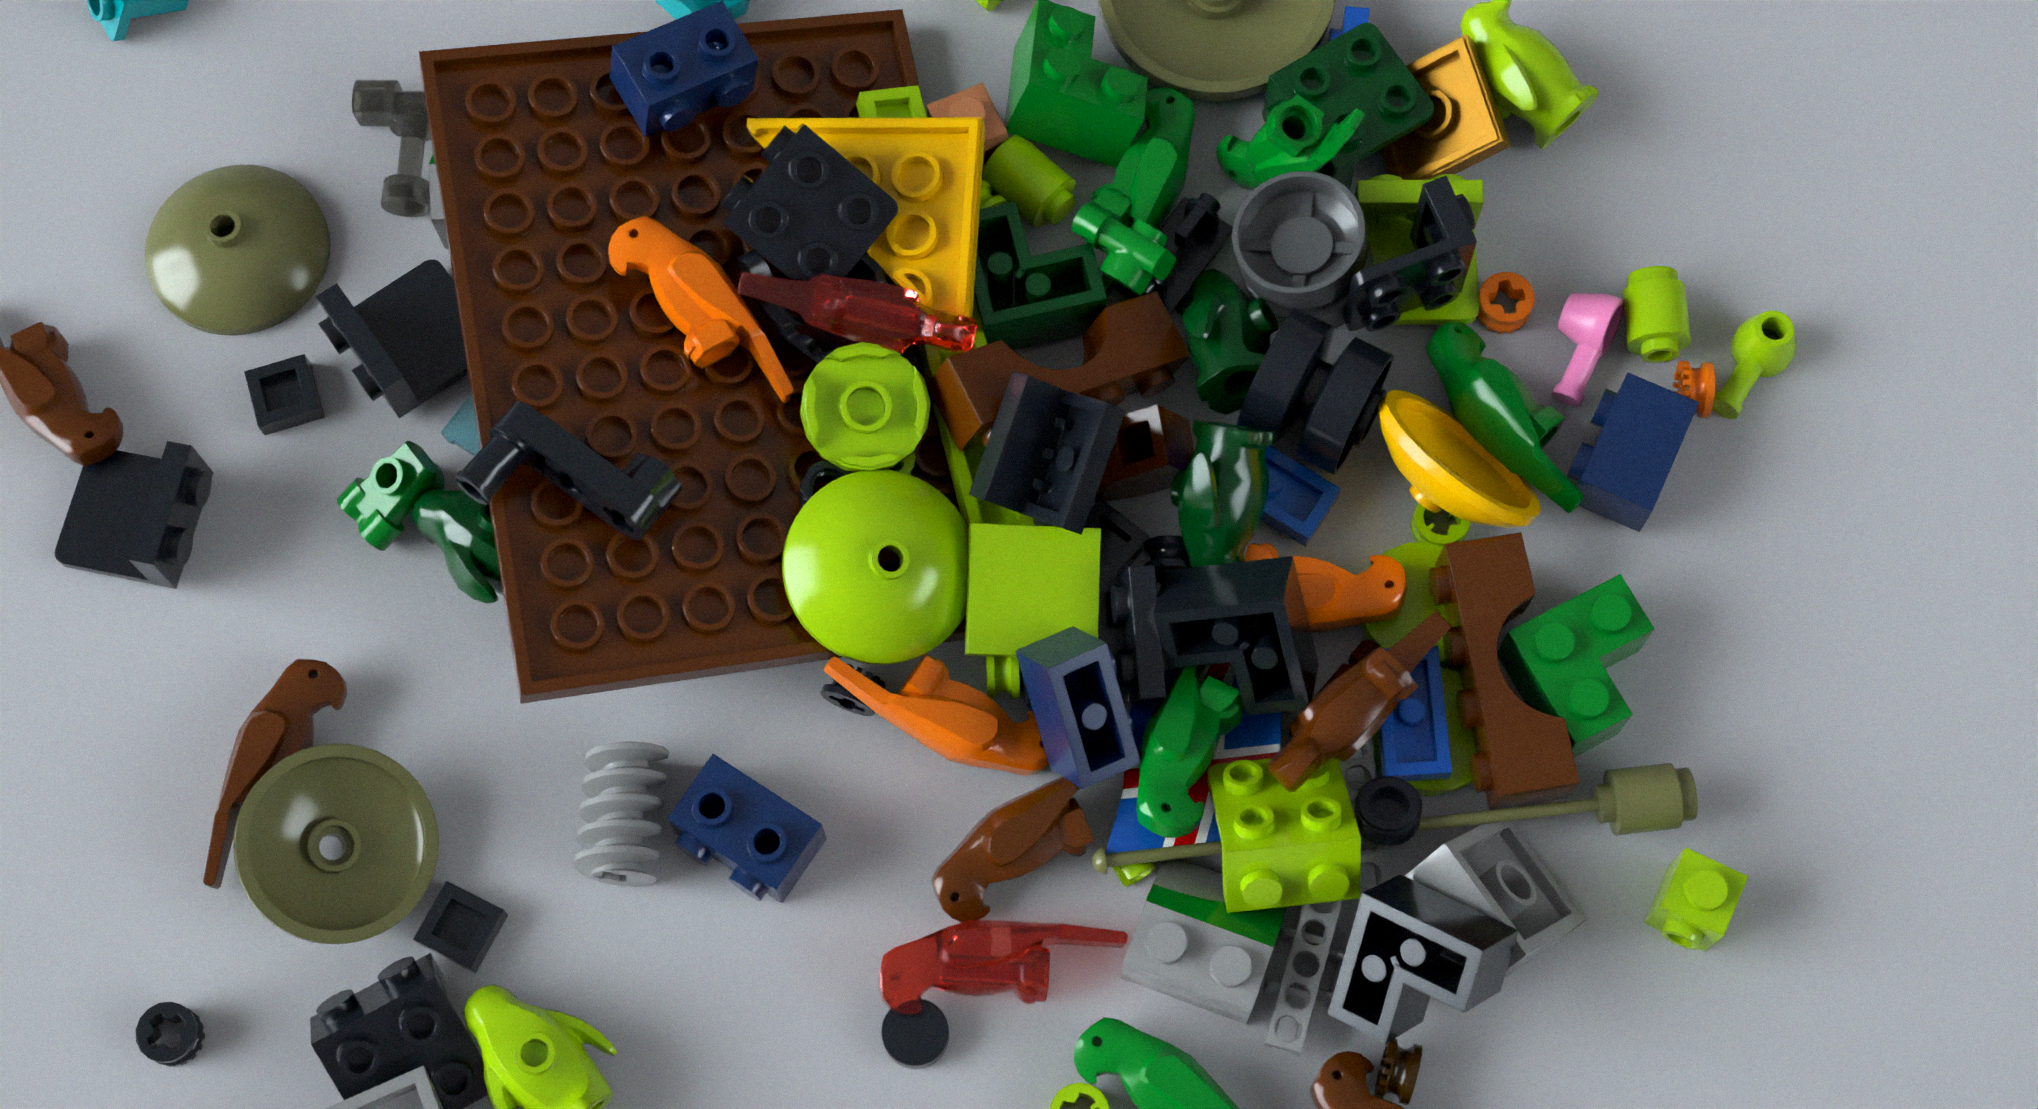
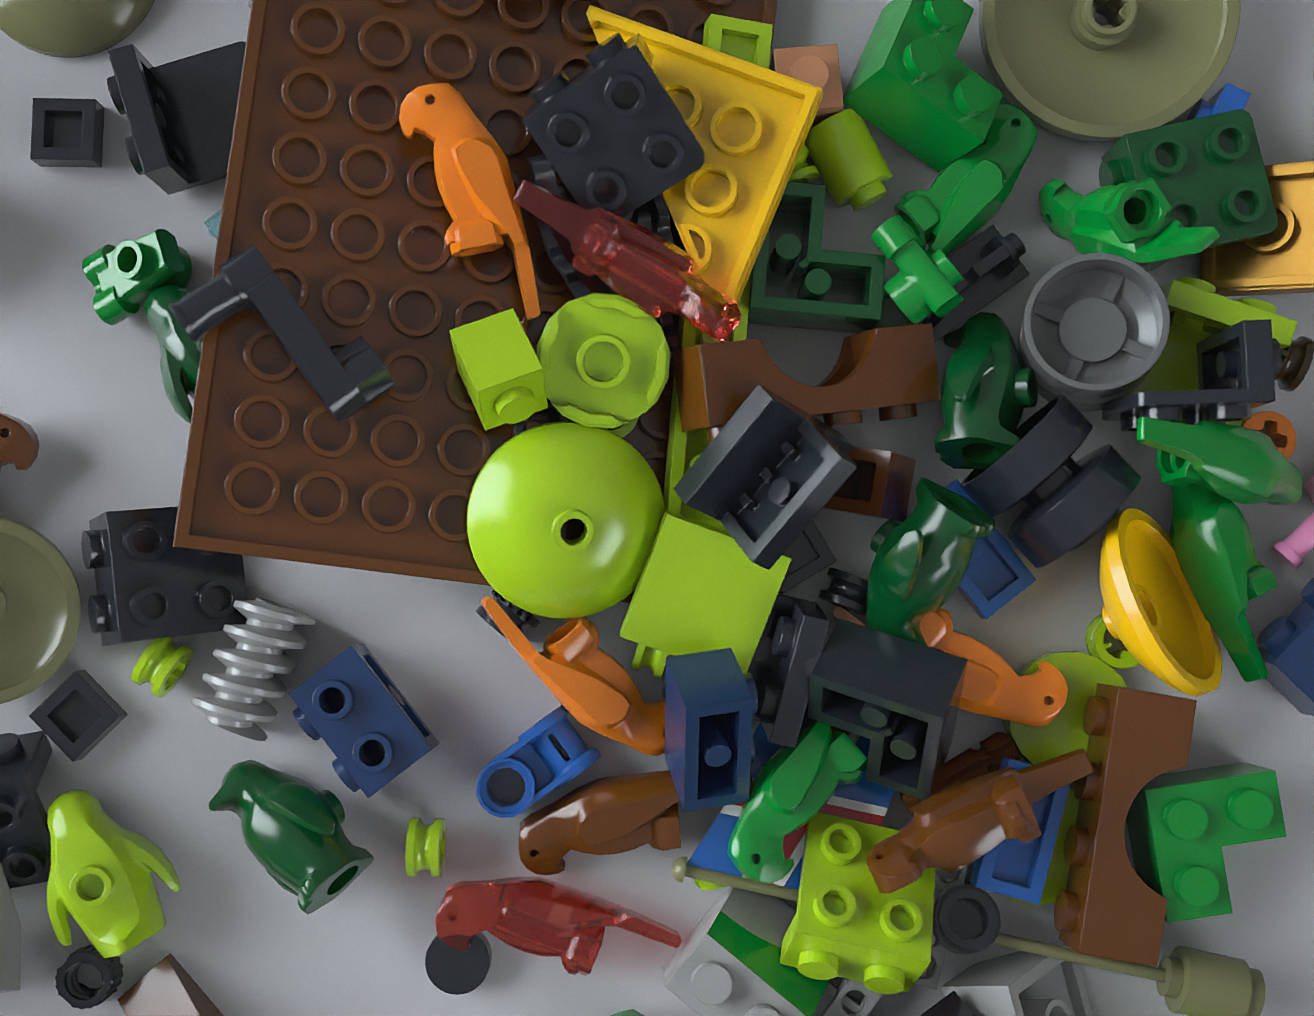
camera: 10 degrees right, 15 degrees up
(500, 761) = (150, 585): none -> black bracket
(531, 845) = (162, 665): none -> lime bush
(713, 956) = (292, 832): none -> dark green animal
(773, 444) = (499, 369): none -> lime brick
(847, 931) = (425, 847): none -> lime bush
(935, 808) = (538, 762): none -> blue piece
(1464, 319) = (1222, 460): none -> green animal
(1496, 226) = (1295, 363): none -> dark brown bush

